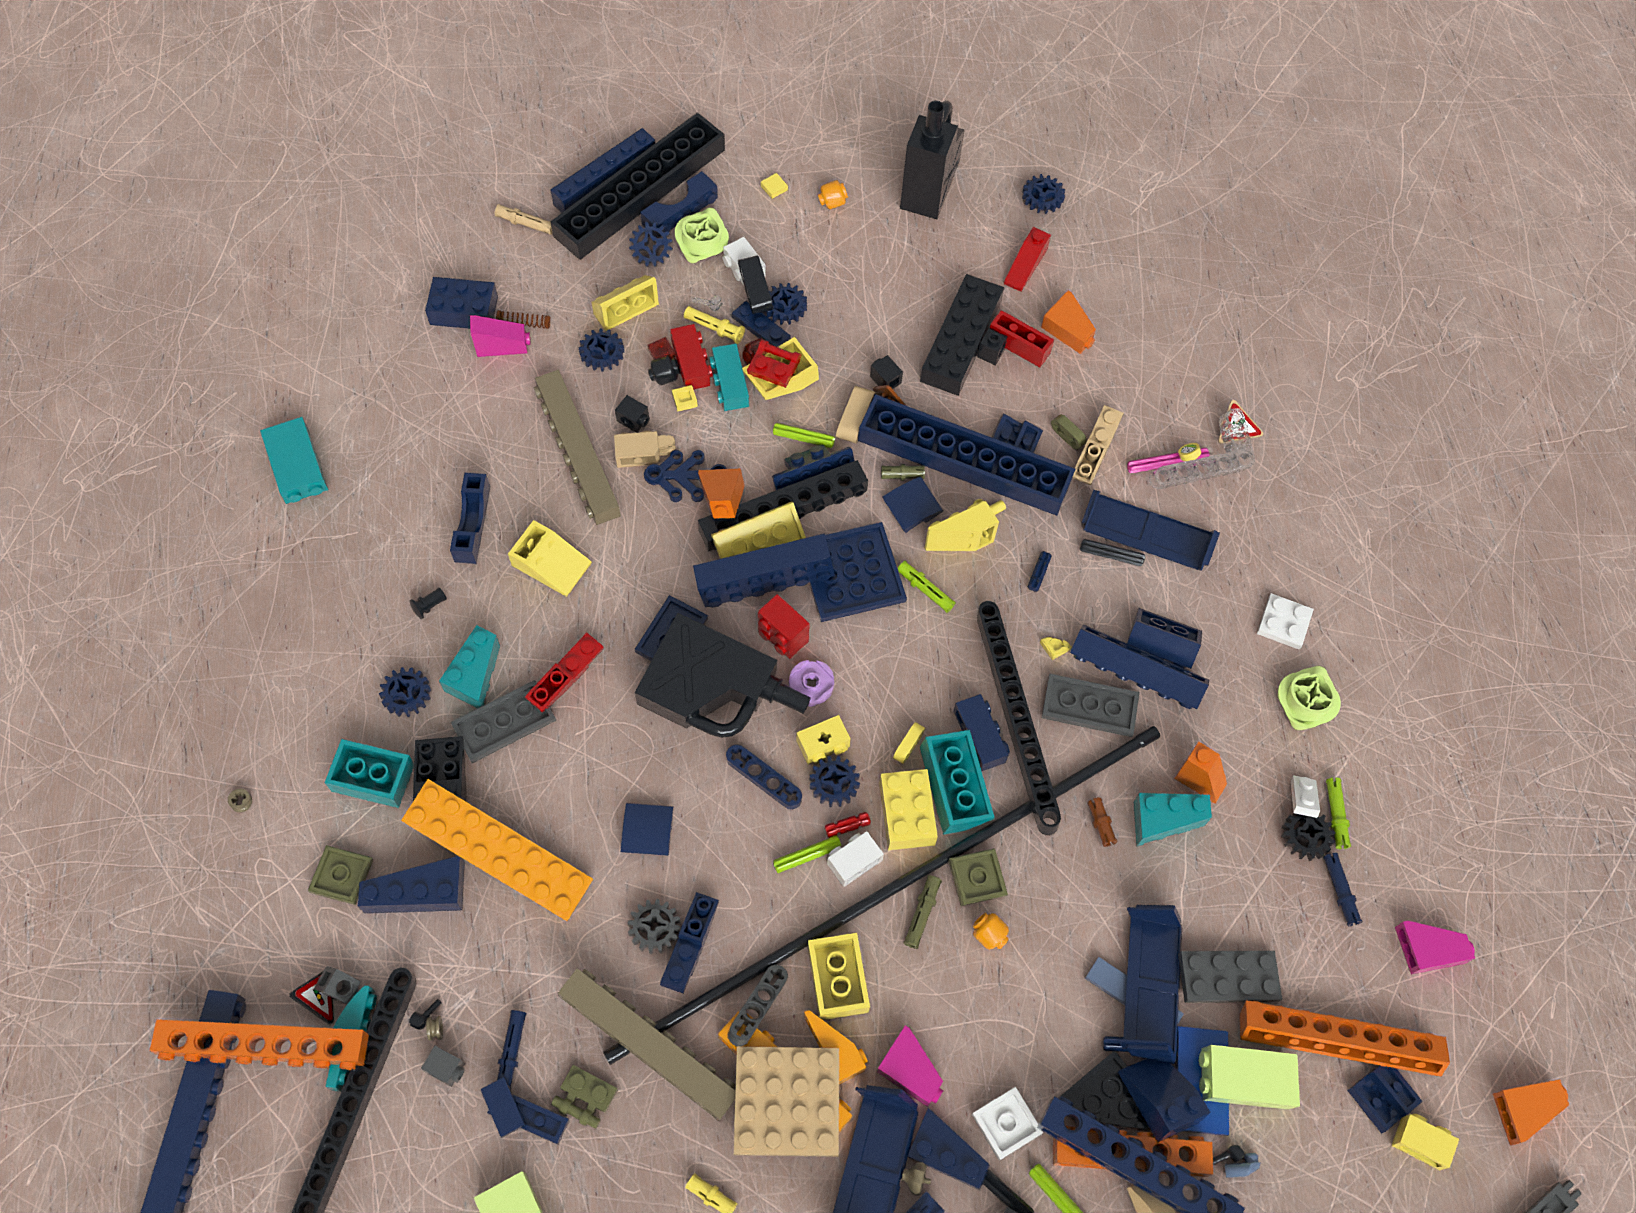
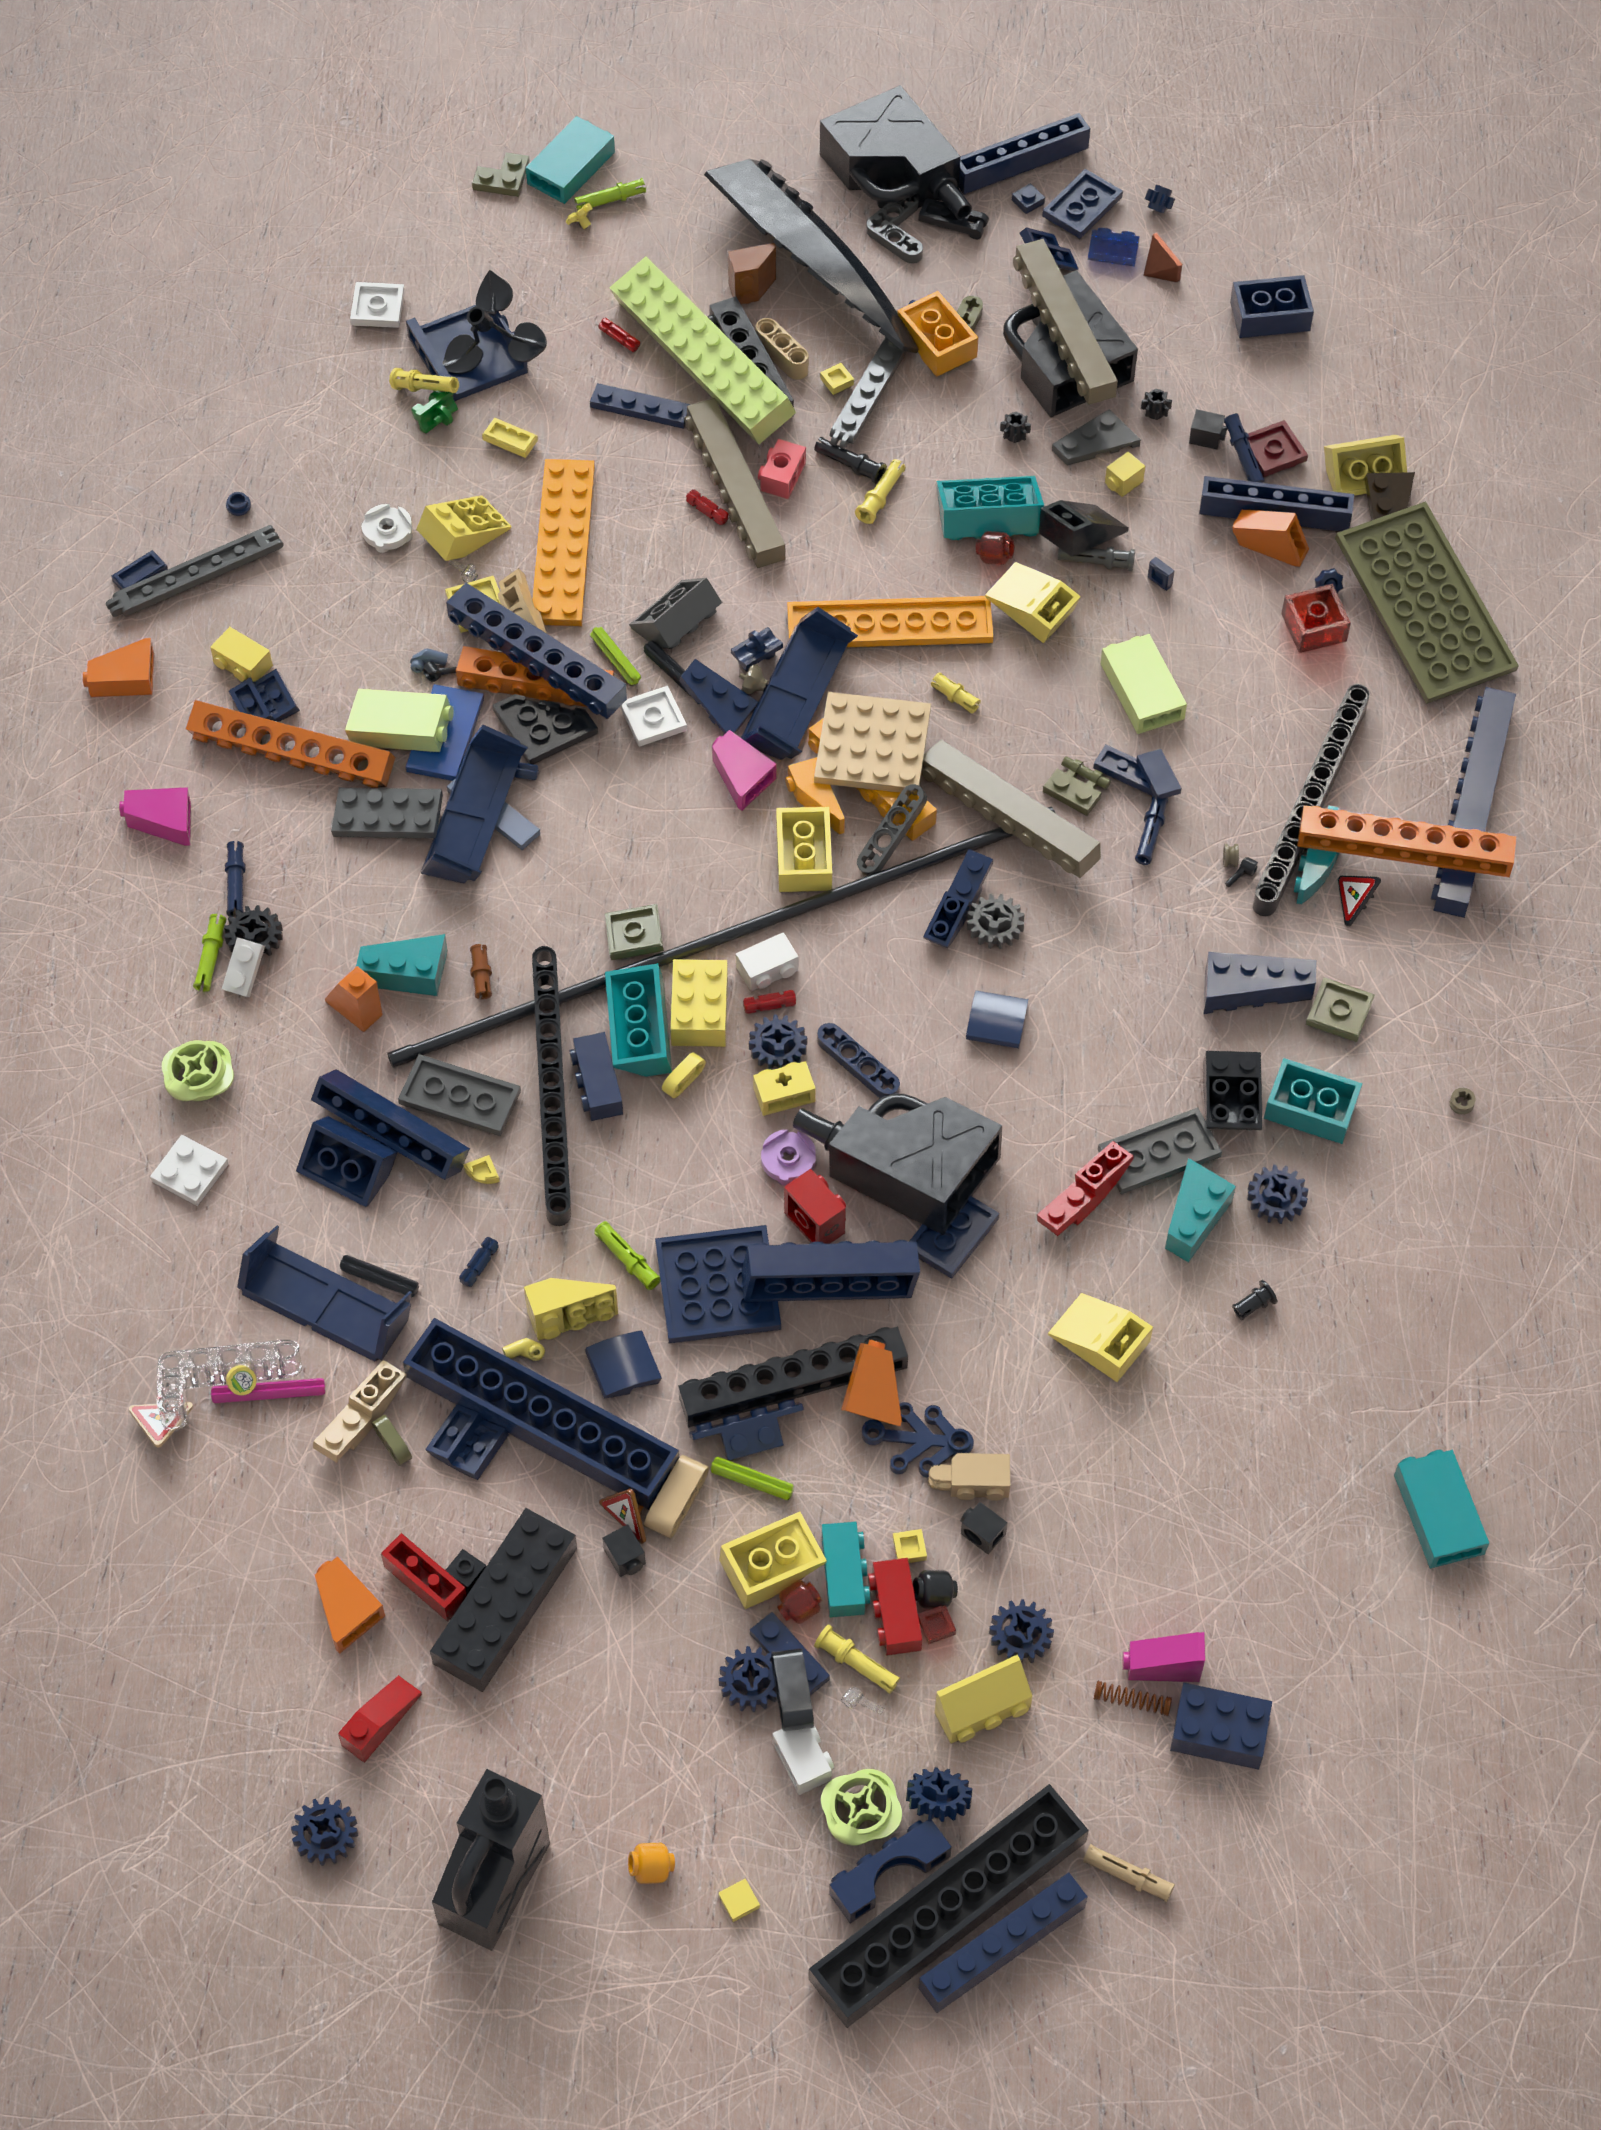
camera: 170 degrees left, 5 degrees down
(328, 982) = (1334, 897): dark grey brick -> none
(444, 1066) = (1220, 820): dark grey brick -> none
(467, 537) = (1202, 1395): dark blue arch -> none
(497, 850) = (1166, 1003): light orange plate -> none
(577, 448) = (1062, 1490): dark tan brick -> none
(760, 532) = (830, 1329): light yellow tile -> none
(771, 369) = (785, 1545): red plate -> none
(806, 854) = (820, 977): lime axle -> none
(902, 472) = (629, 1410): olive pin -> none
(922, 912) = (687, 928): olive pin -> none
(991, 931) = (632, 877): light orange head -> none
(1164, 1097) = (492, 700): dark blue slope -> none

